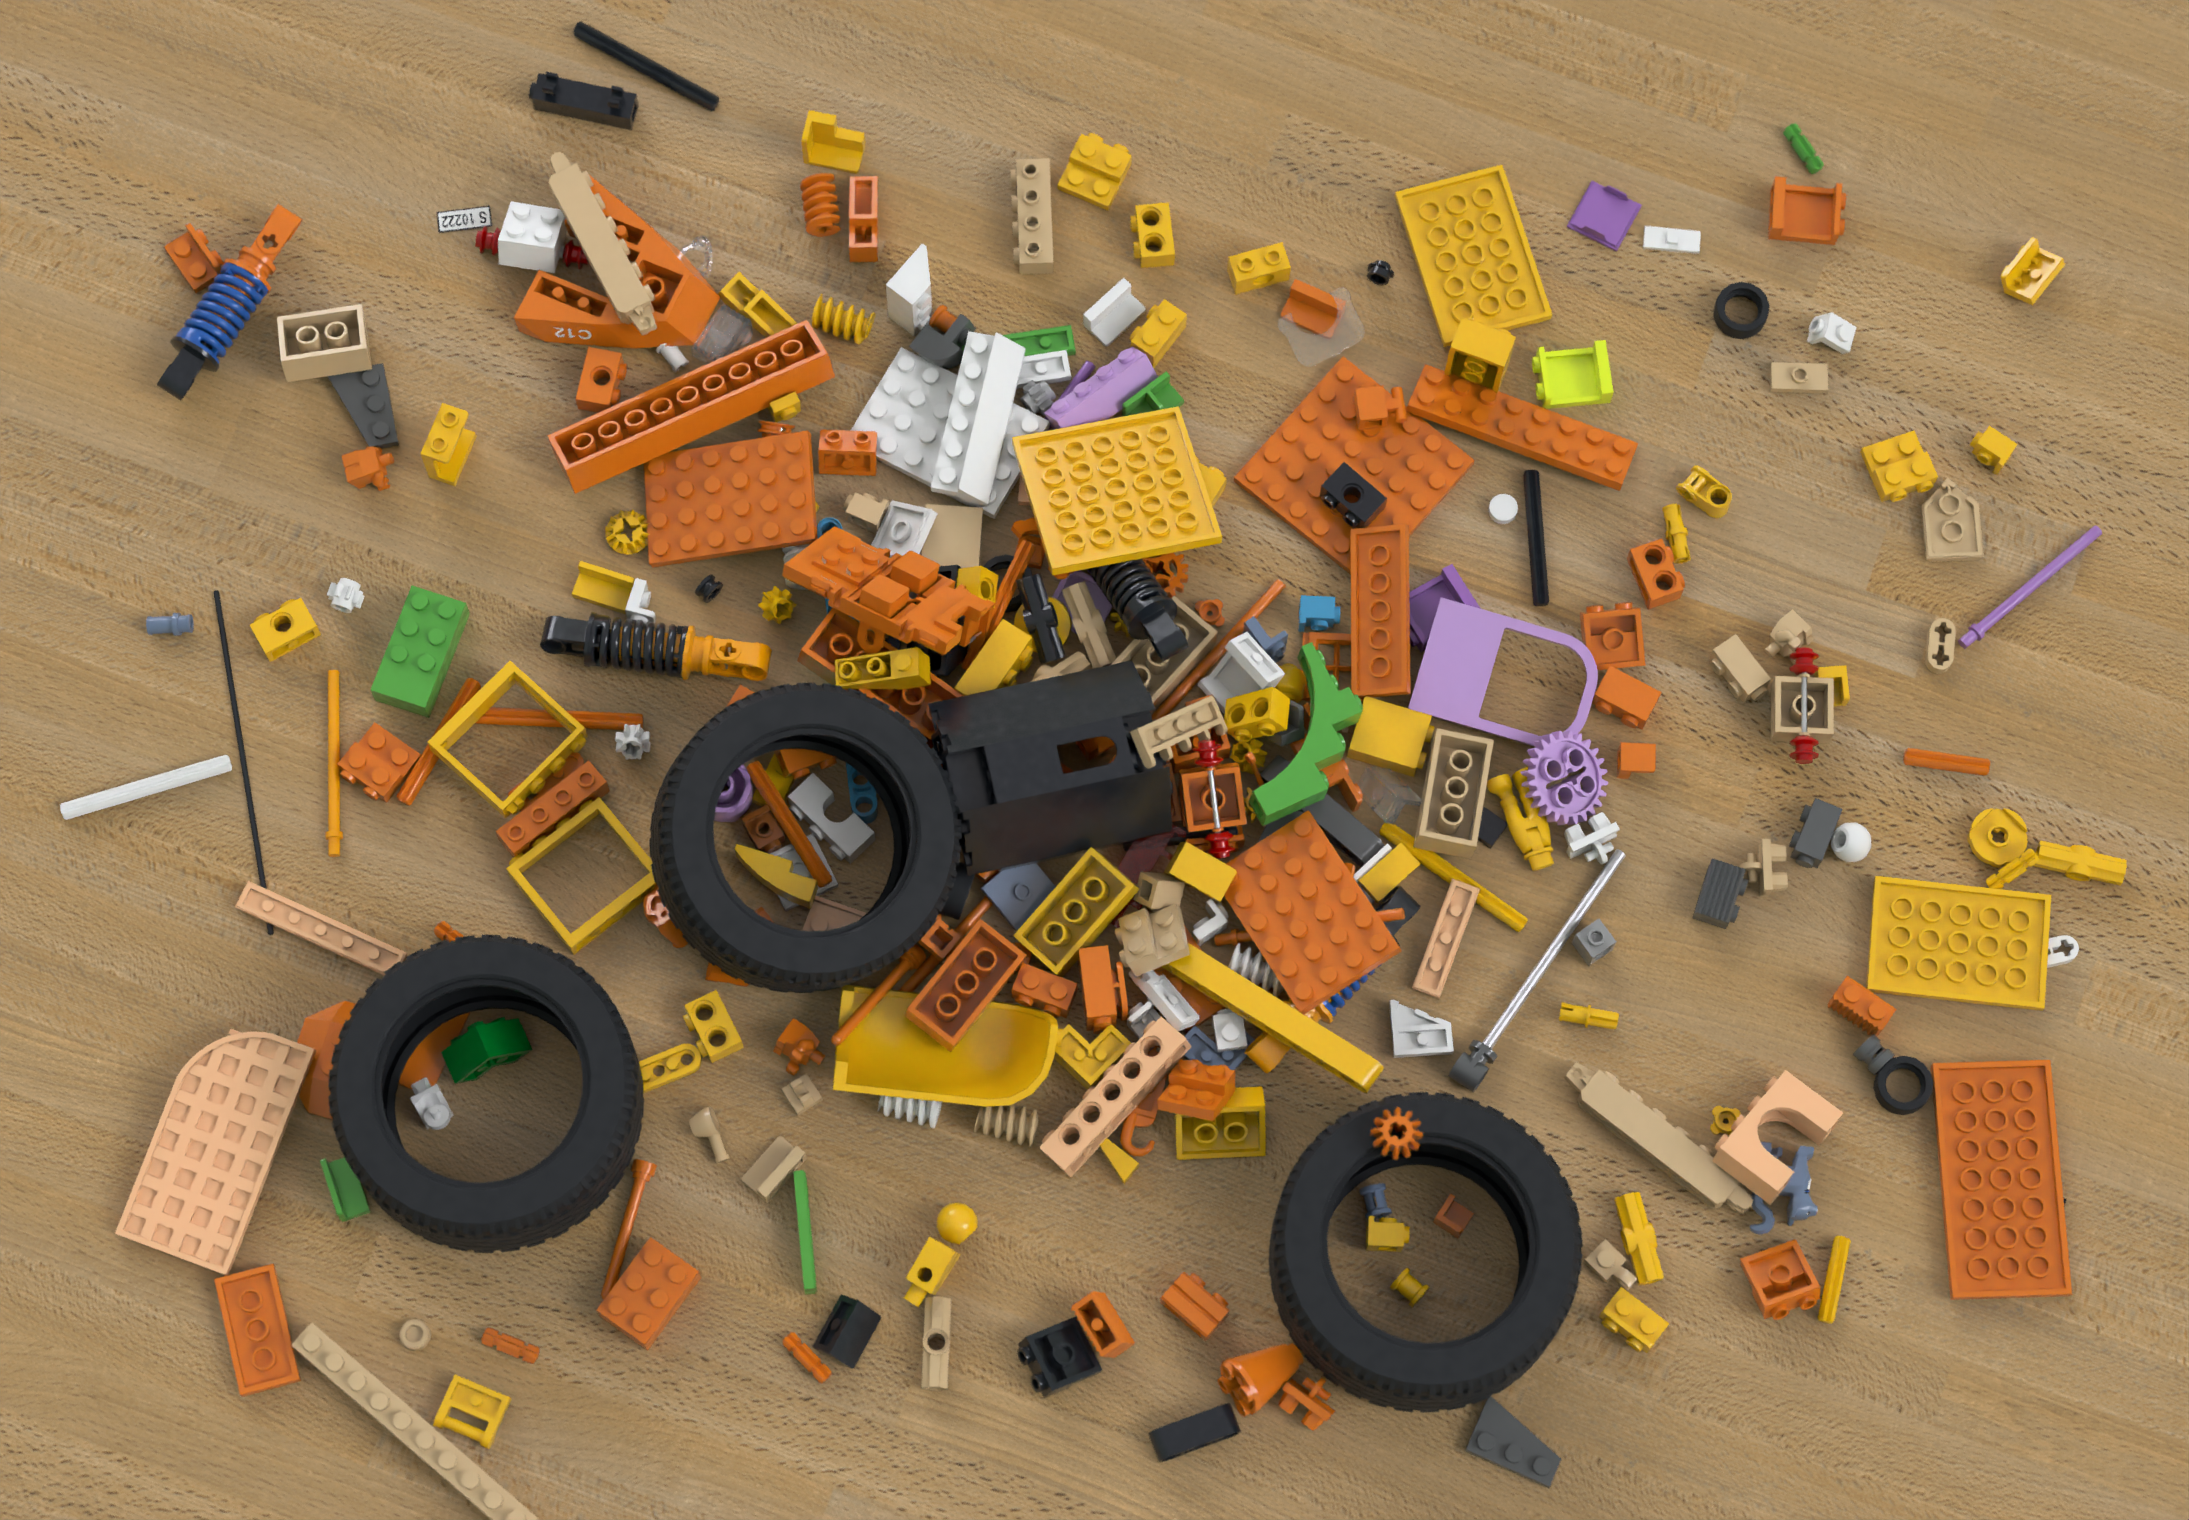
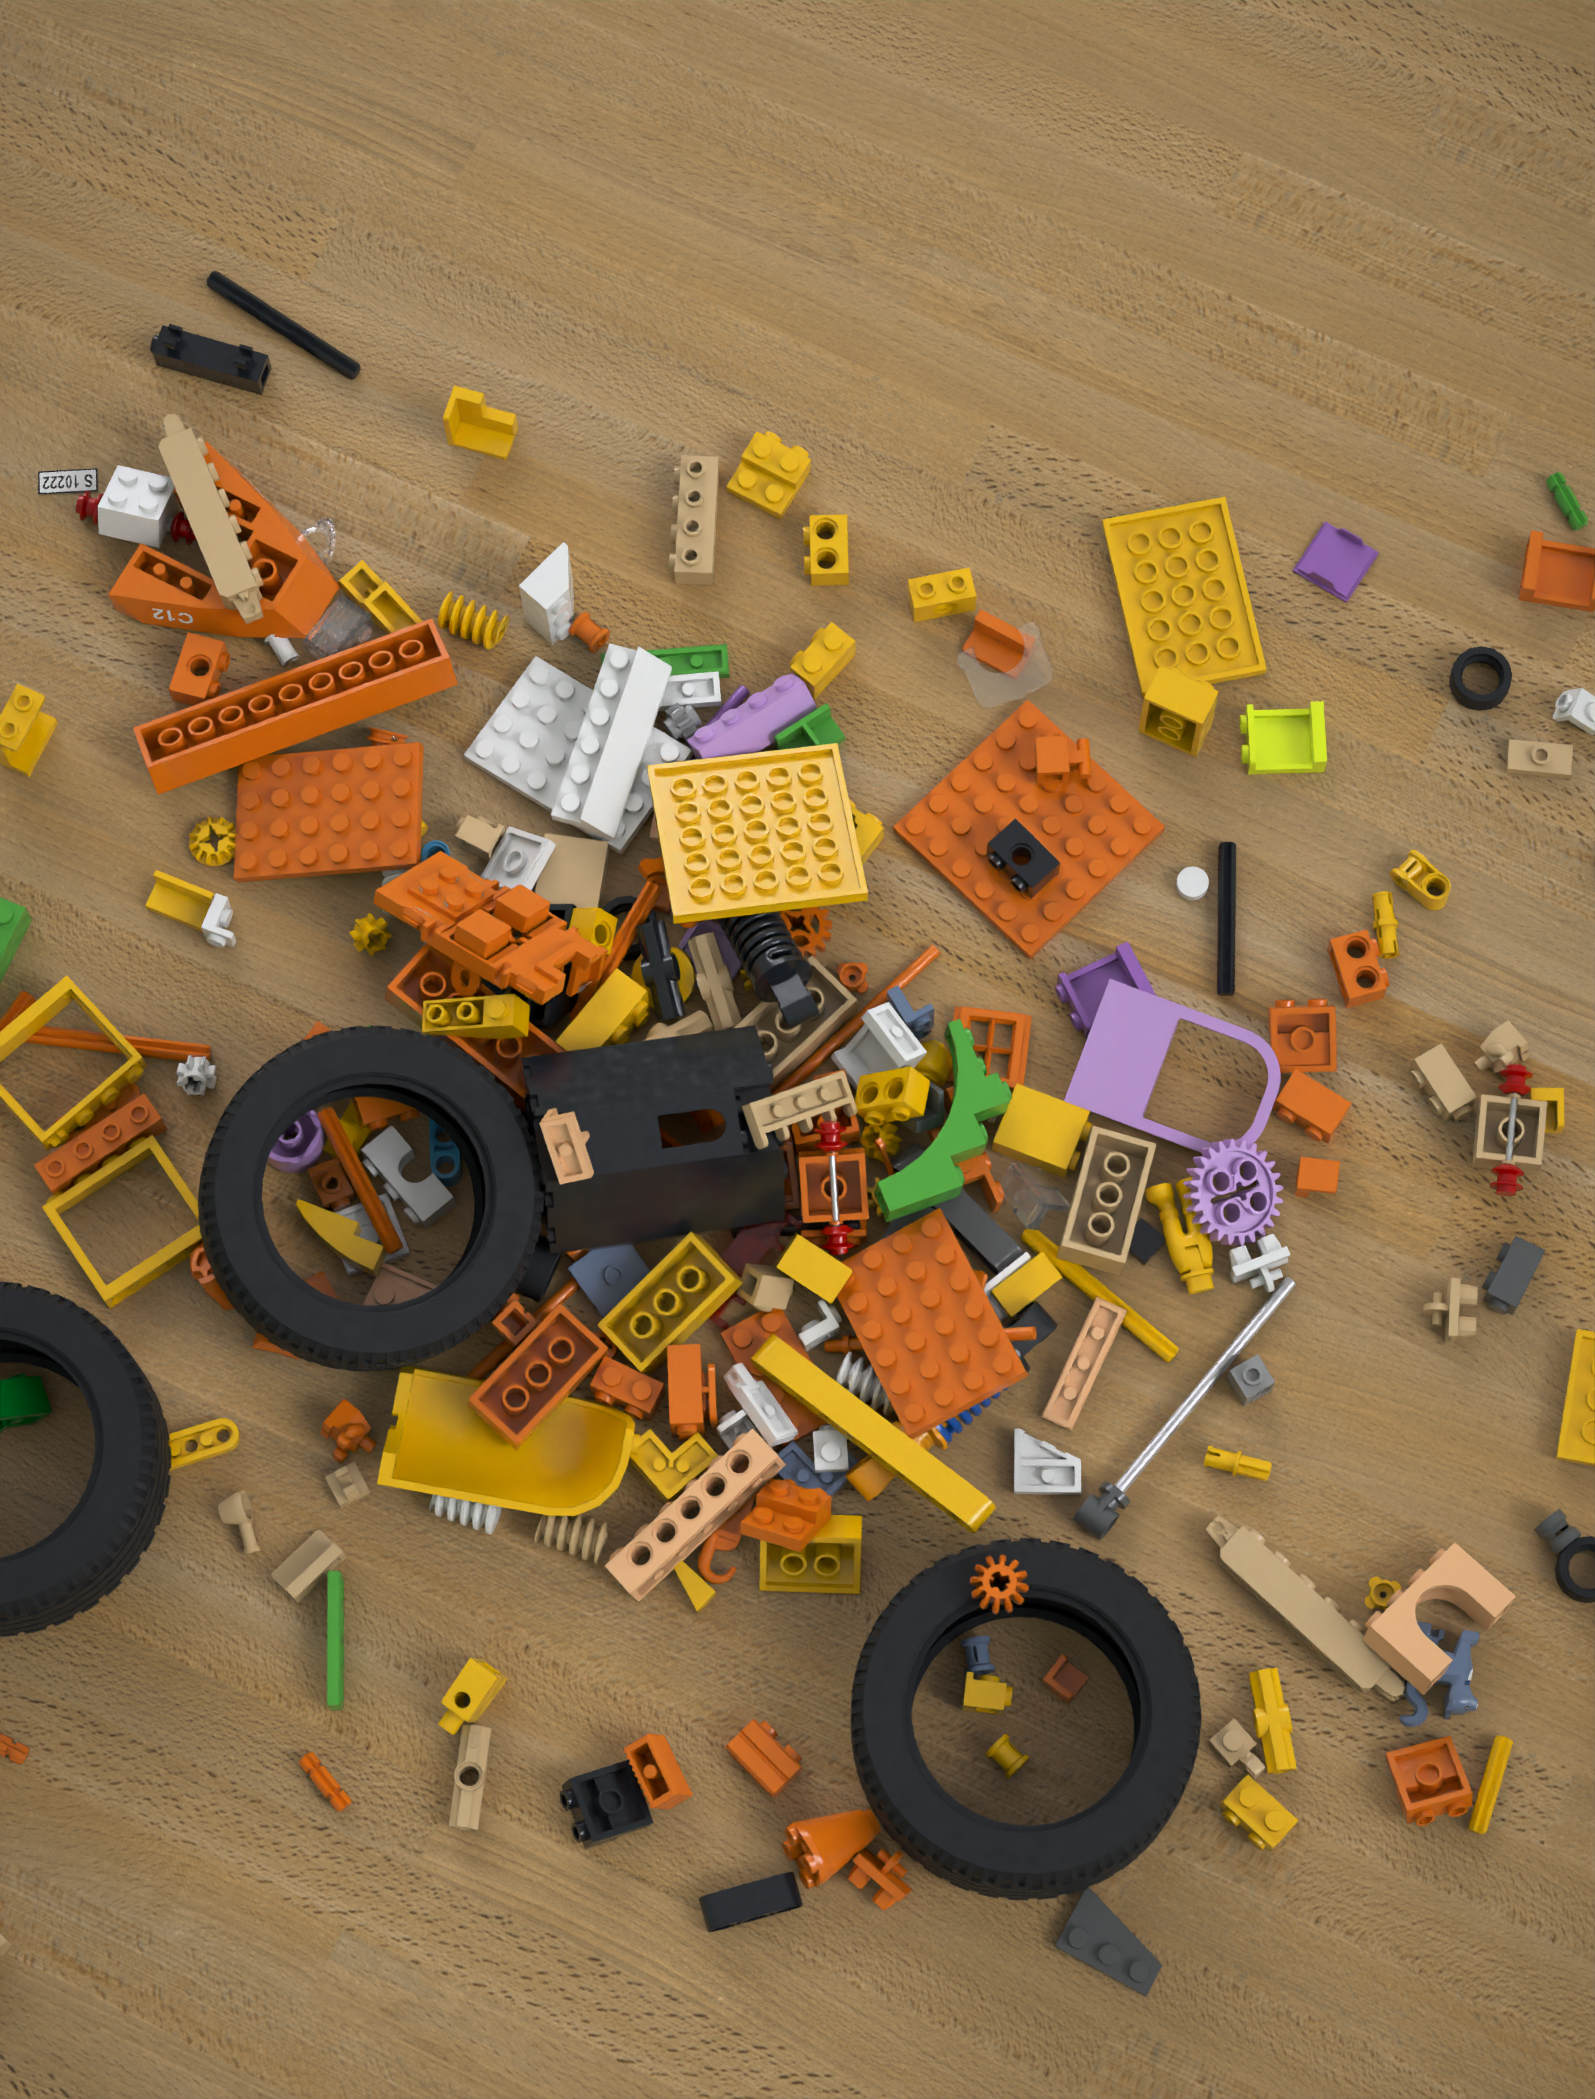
camera: 10 degrees right, 0 degrees up
(642, 1172) = (161, 1560): orange piece -> none
(648, 1293) = (155, 1696): orange brick -> none
(649, 650) = (228, 973): black piece -> none
(709, 588) = (297, 910): black bush -> none
(718, 1024) = (261, 1399): yellow brick -> none
(785, 407) = (399, 714): yellow bracket -> none
(819, 205) = (458, 491): orange piece -> none
(847, 1331) = (372, 1756): black panel -> none
(848, 452) = (464, 769): orange bracket -> none
(863, 219) = (507, 510): orange slope -> none
(908, 961) = (481, 1342): orange piece -> none
(946, 349) = (581, 662): dark grey brick -> none
(956, 1222) = (505, 1643): yellow piece -> none
(980, 777) = (566, 1146): none -> light nougat panel
(1113, 313) = (775, 634): white panel -> none
(1152, 938) = (751, 1340): tan plate -> none
(1317, 613) = (973, 985): dark azure brick -> none
(1380, 272) = (1077, 608): black plate -> none
(1380, 611) = (1041, 989): orange plate -> none
(1522, 427) = (1221, 793): orange plate -> none
(1671, 239) = (1409, 594): white piece -> none
(1719, 893) = (1398, 1335): dark grey brick -> none
(1851, 842) = (1552, 1288): white piece -> none
(1861, 1006) = (1548, 1476): orange brick -> none

